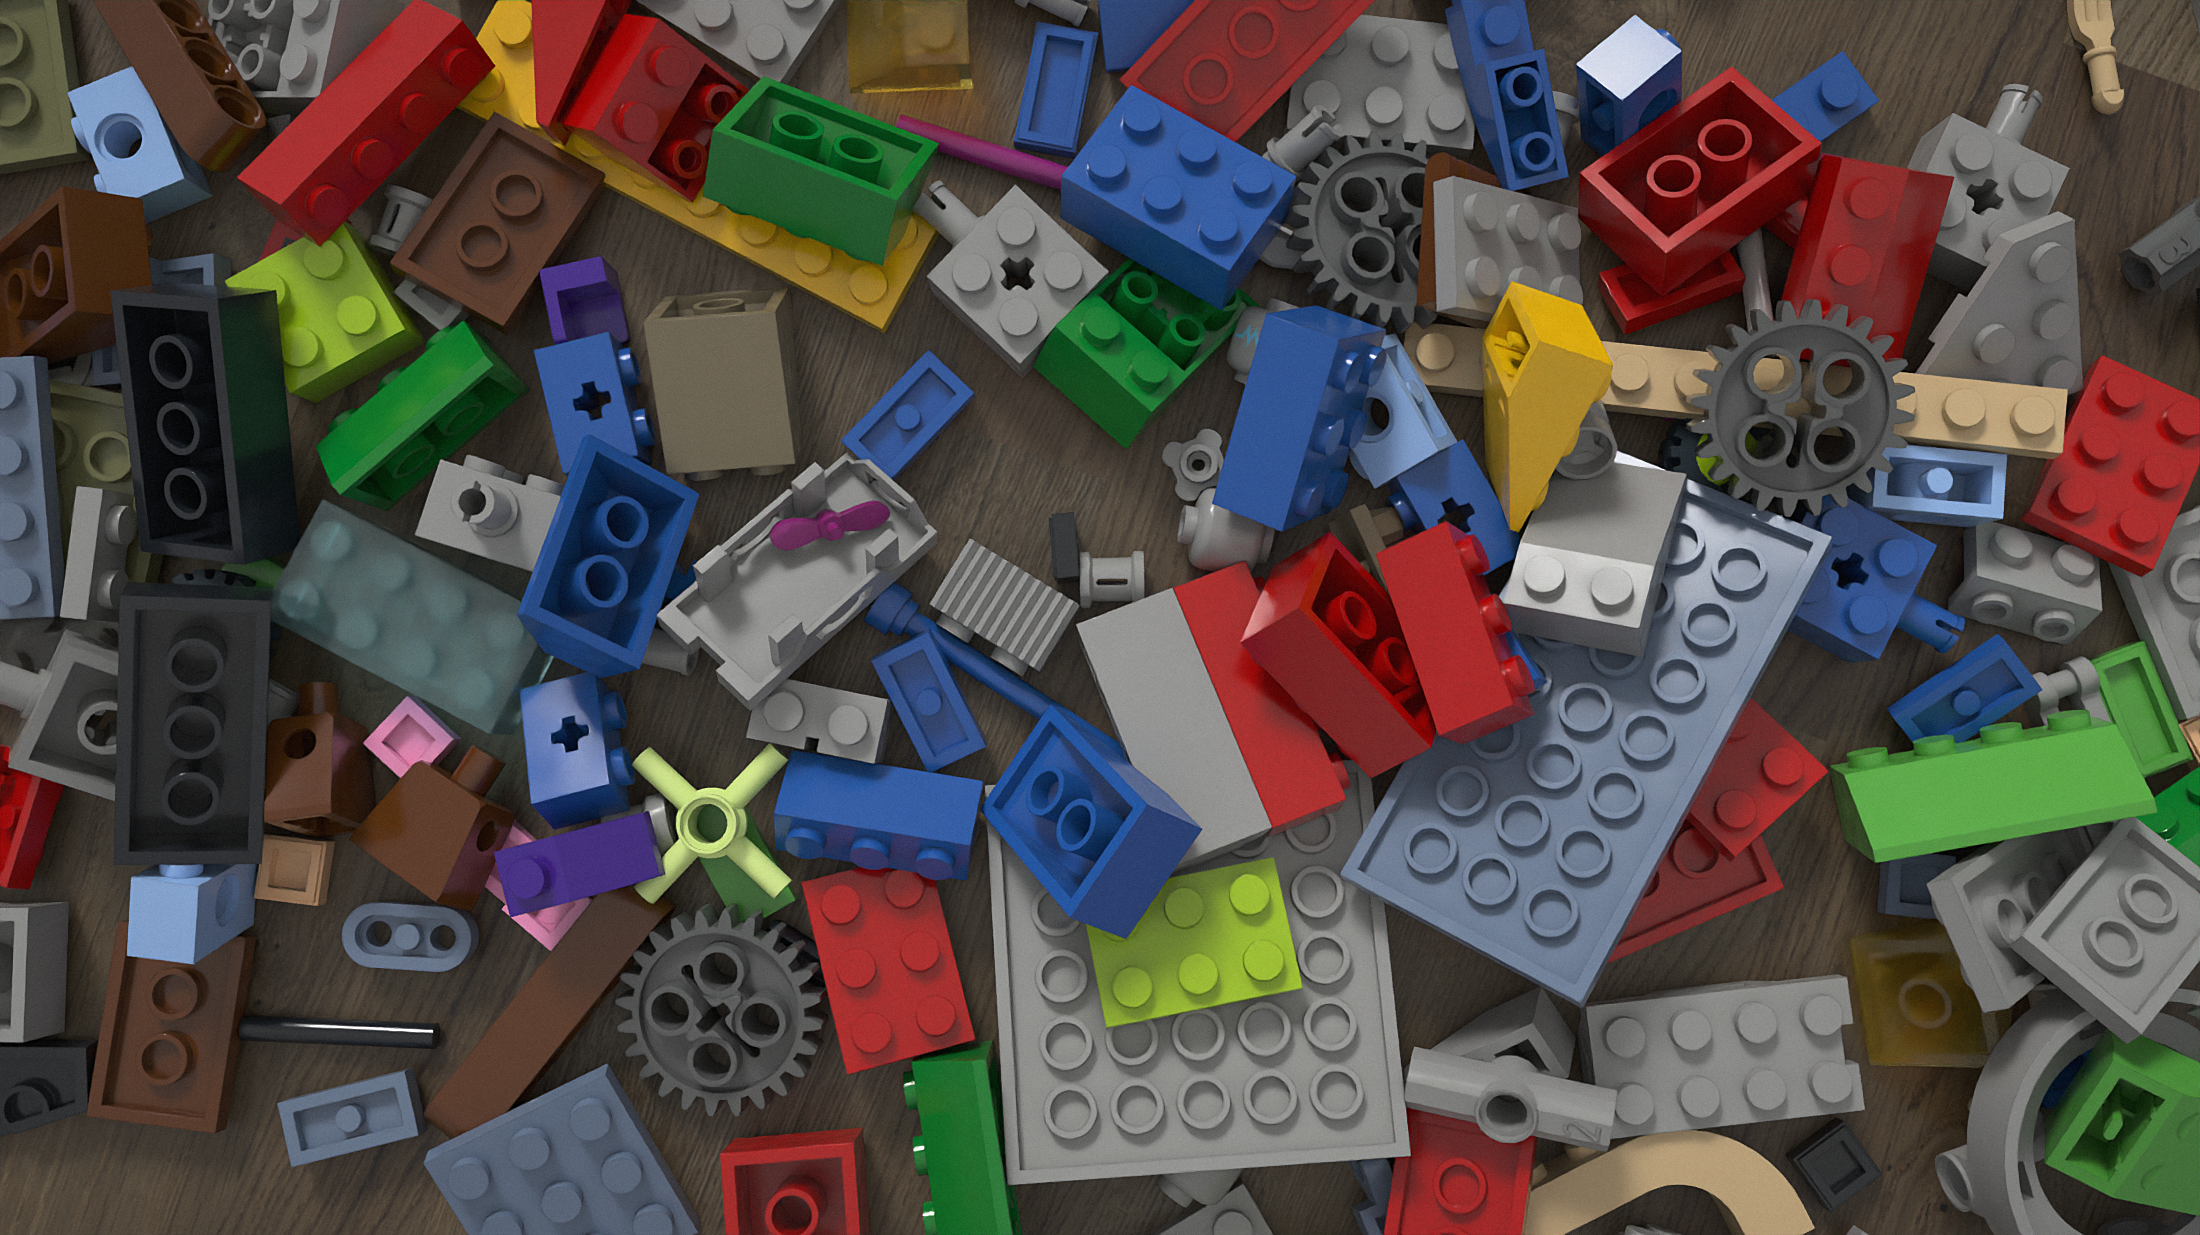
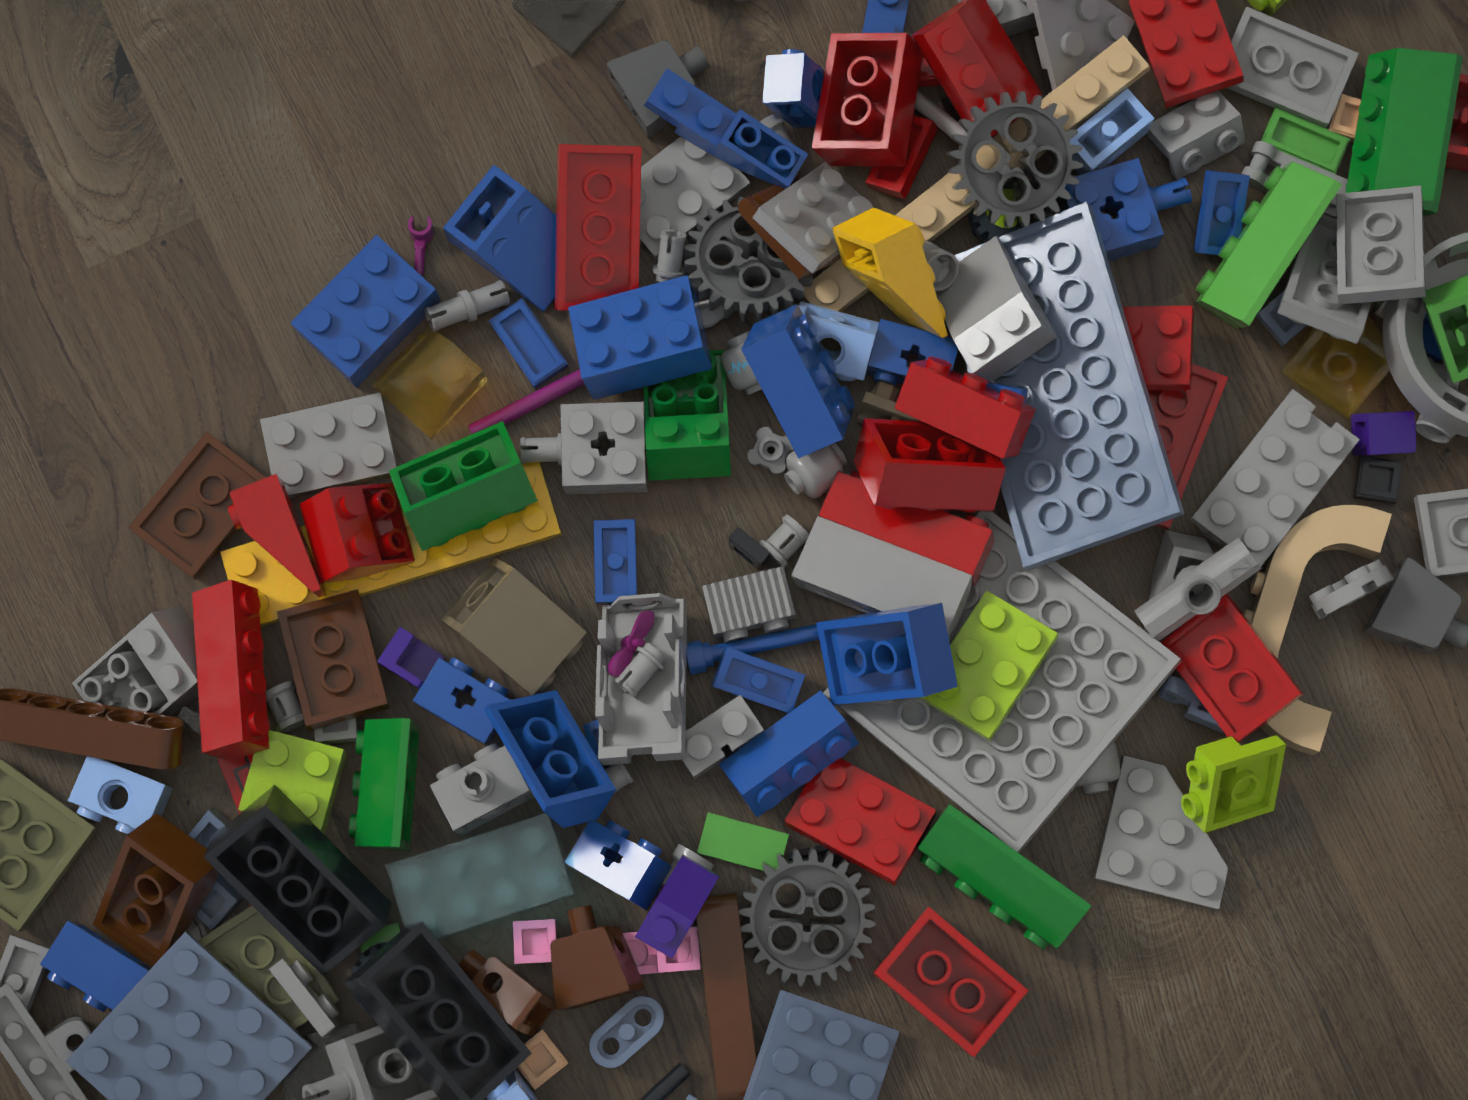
camera: 40 degrees left, 5 degrees down
(731, 802) = (716, 813): yellowish green bar -> none
(805, 563) = (640, 669): none -> light grey pin
(1899, 1126) = (1384, 433): none -> dark purple panel

